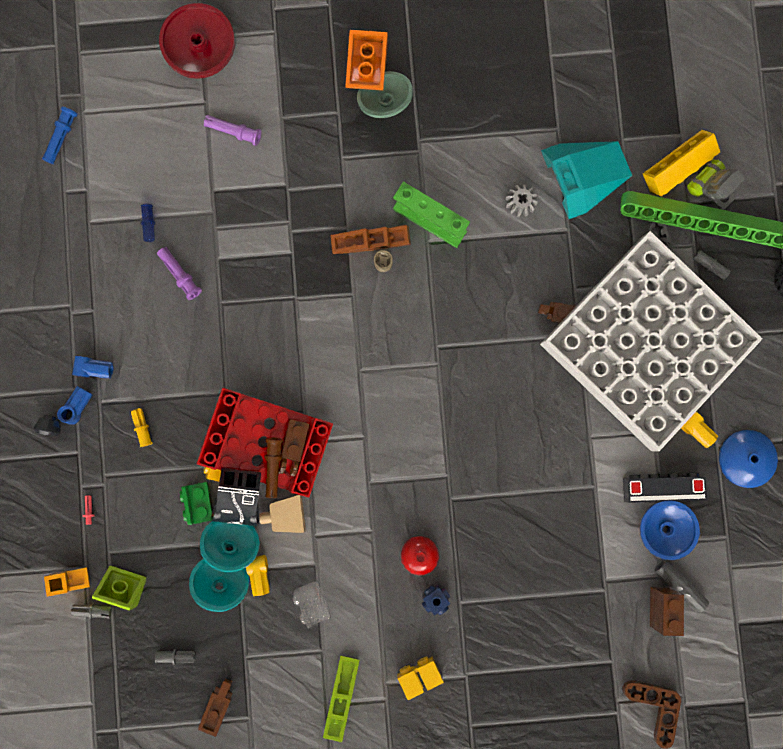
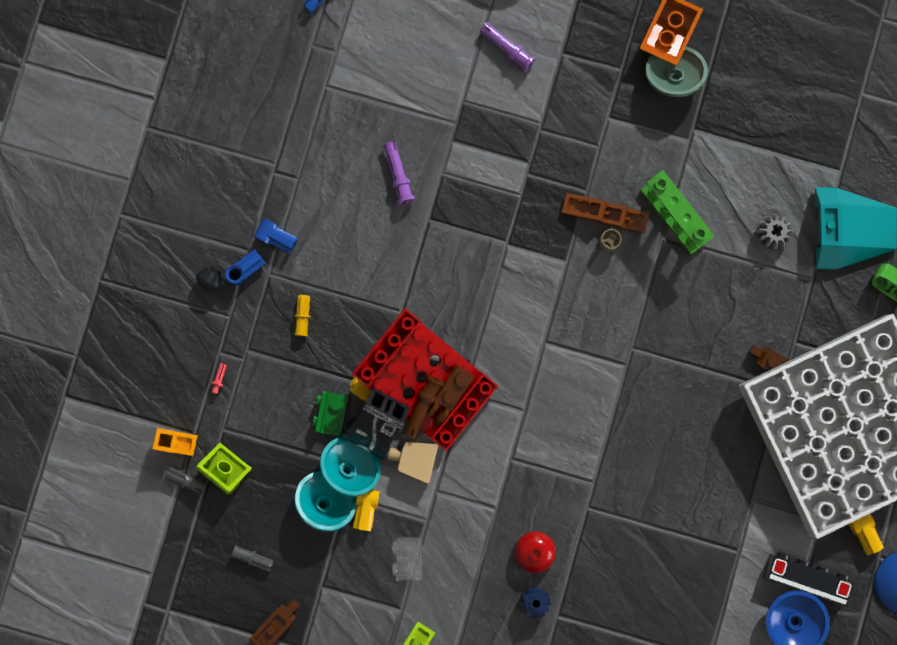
camera: 15 degrees right, 0 degrees up
(147, 222) = (385, 110): clear blue axle -> none

